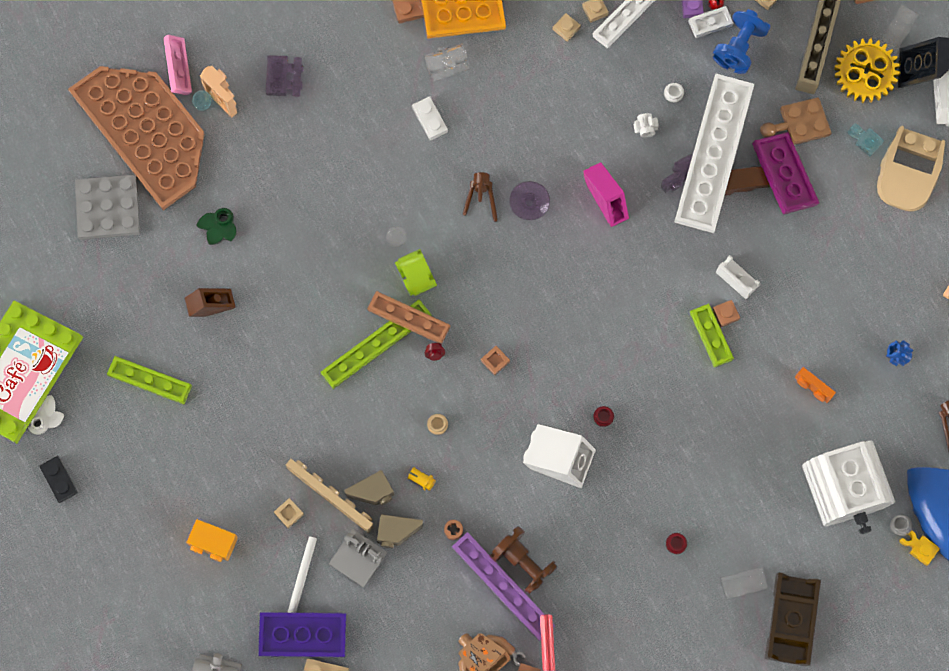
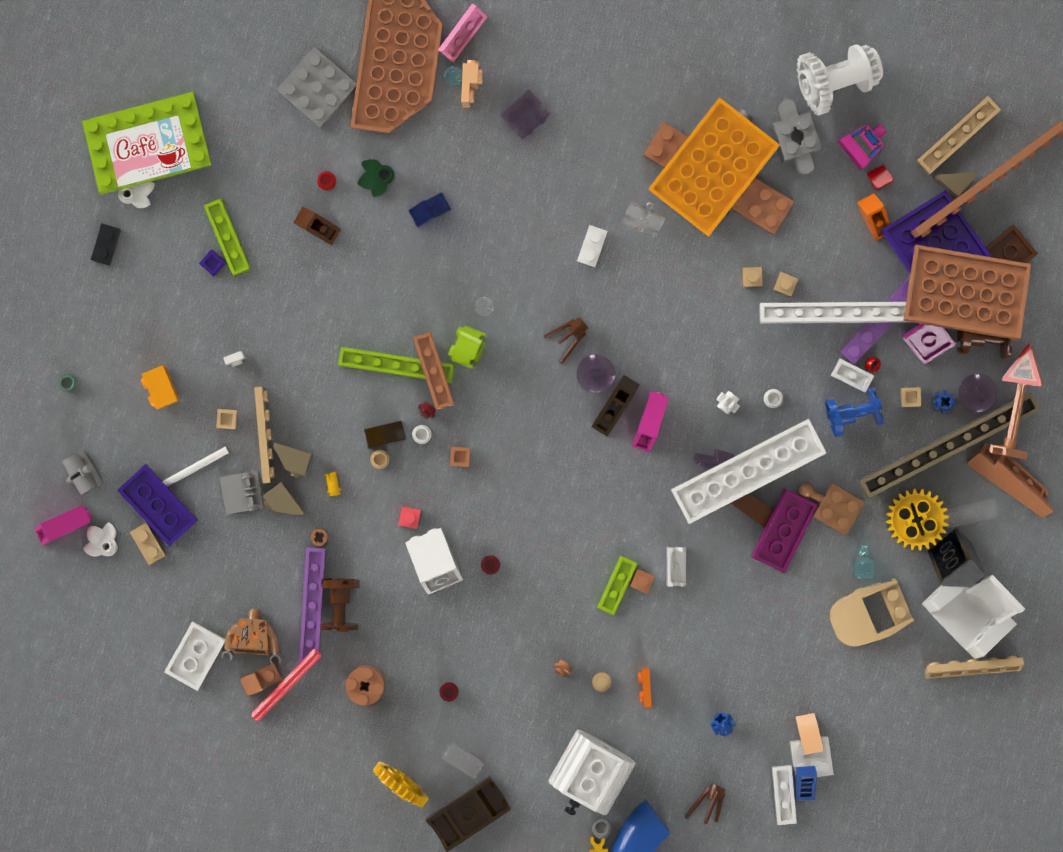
camera: 45 degrees right, 15 degrees up
(134, 614) = (68, 382): none -> sand green plate
(157, 409) = (212, 262): none -> dark purple tile
(183, 264) = (326, 180): none -> red plate
(248, 461) = (235, 359): none -> white plate
(283, 209) = (429, 209): none -> clear blue slope
(421, 402) = (385, 434): none -> dark brown slope
(449, 374) = (421, 434): none -> white plate
(506, 444) = (409, 517): none -> coral plate
(569, 208) = (615, 405): none -> dark brown slope
(598, 609) = (361, 695): none -> nougat brick
(719, 646) = (400, 784): none -> yellow gear
(740, 435) = (562, 668): none -> nougat plate
(779, 416) = (601, 681): none -> tan plate

